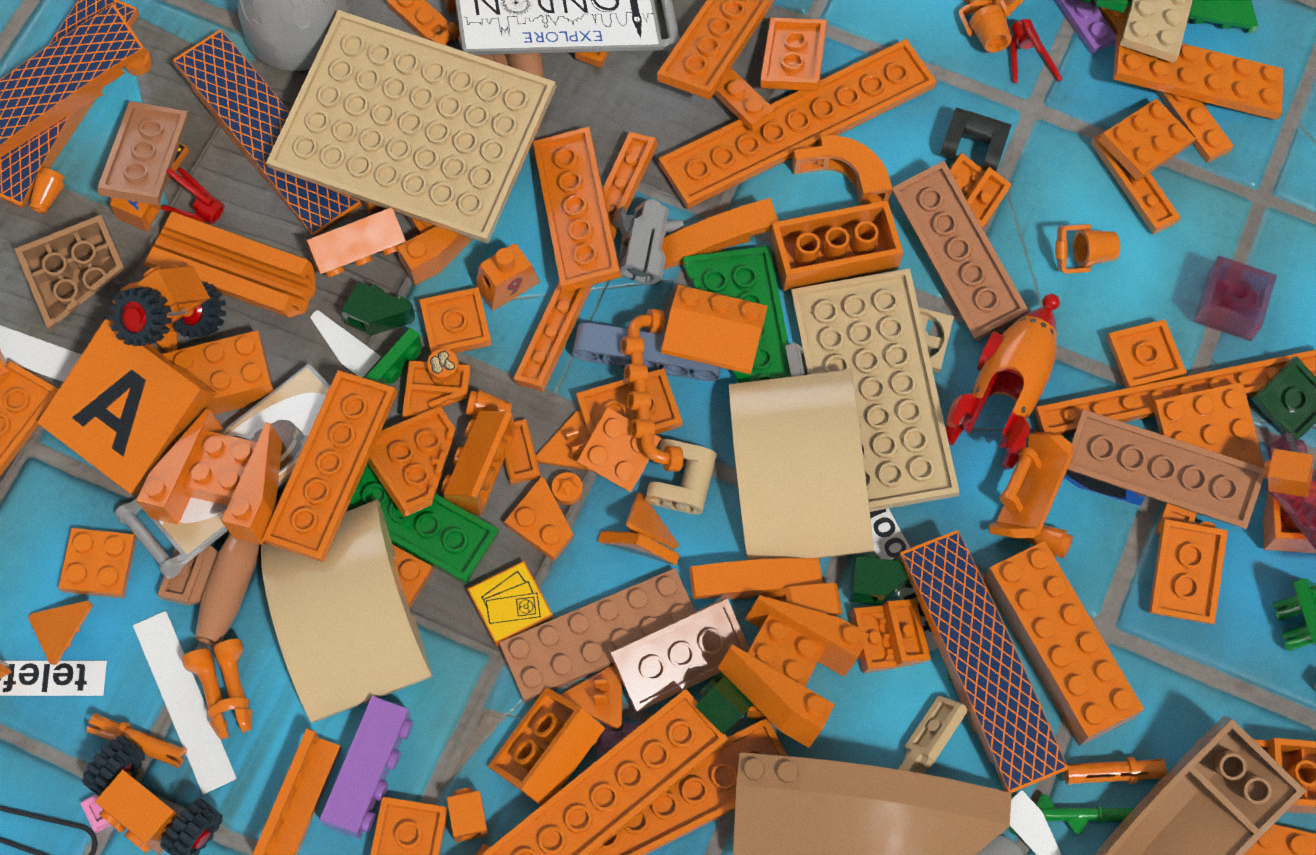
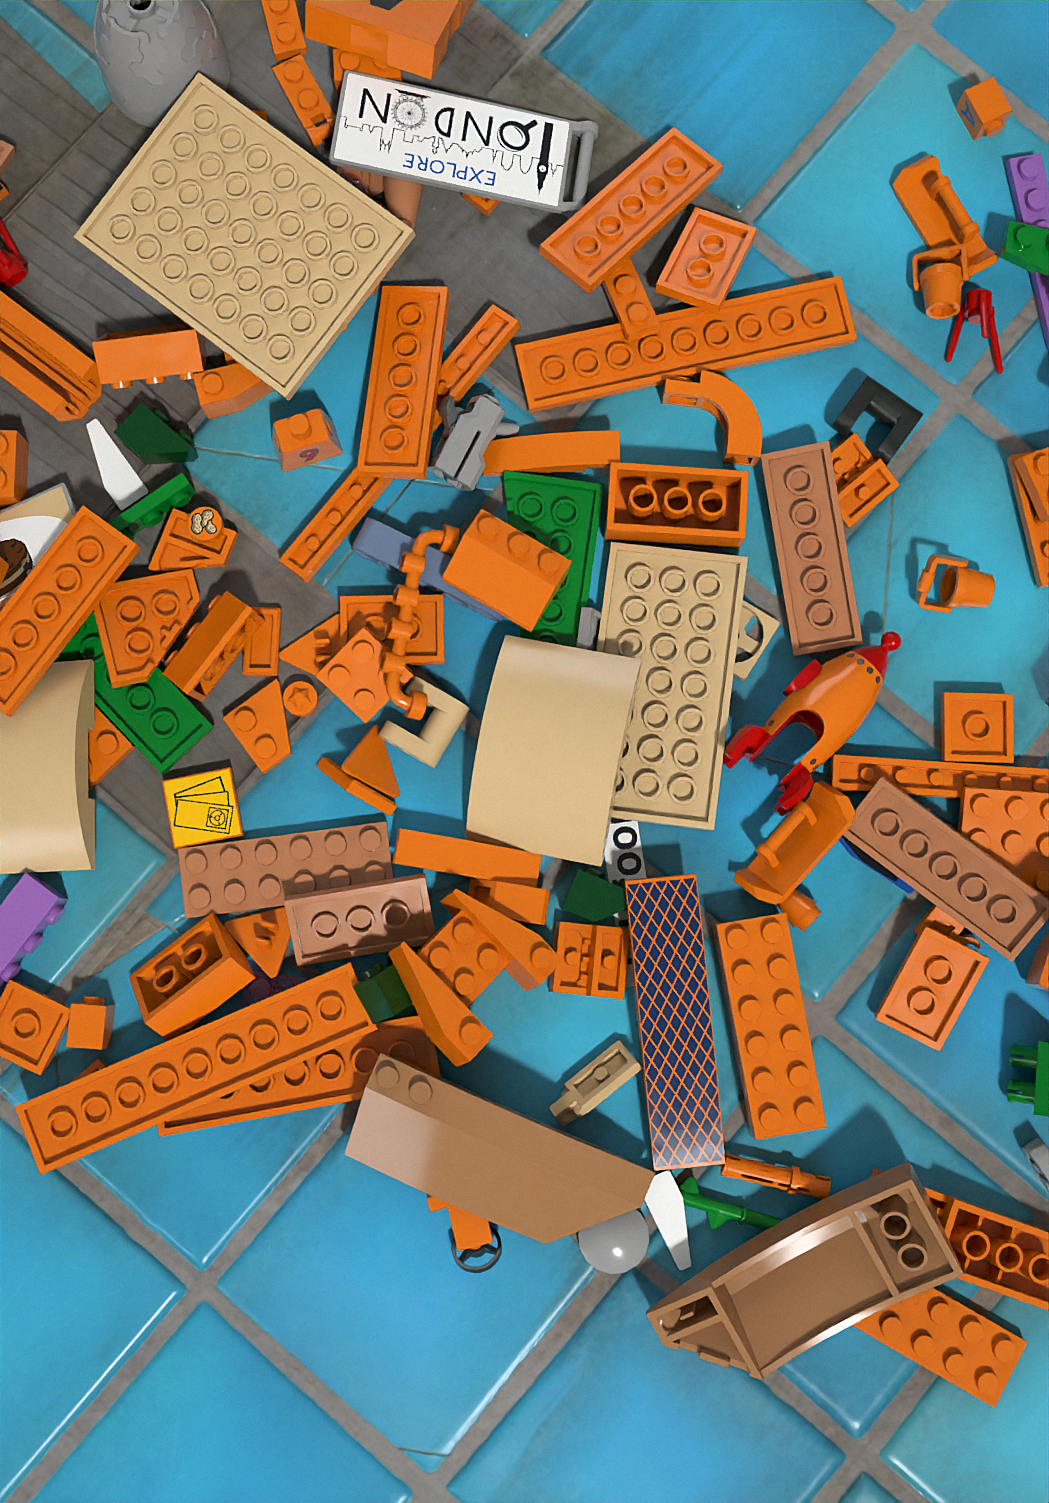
camera: 15 degrees right, 15 degrees up
(253, 120) = (81, 172): dark blue slope -> none
(456, 321) = (236, 476): orange plate -> none
(484, 401) = (242, 583): orange cone -> none

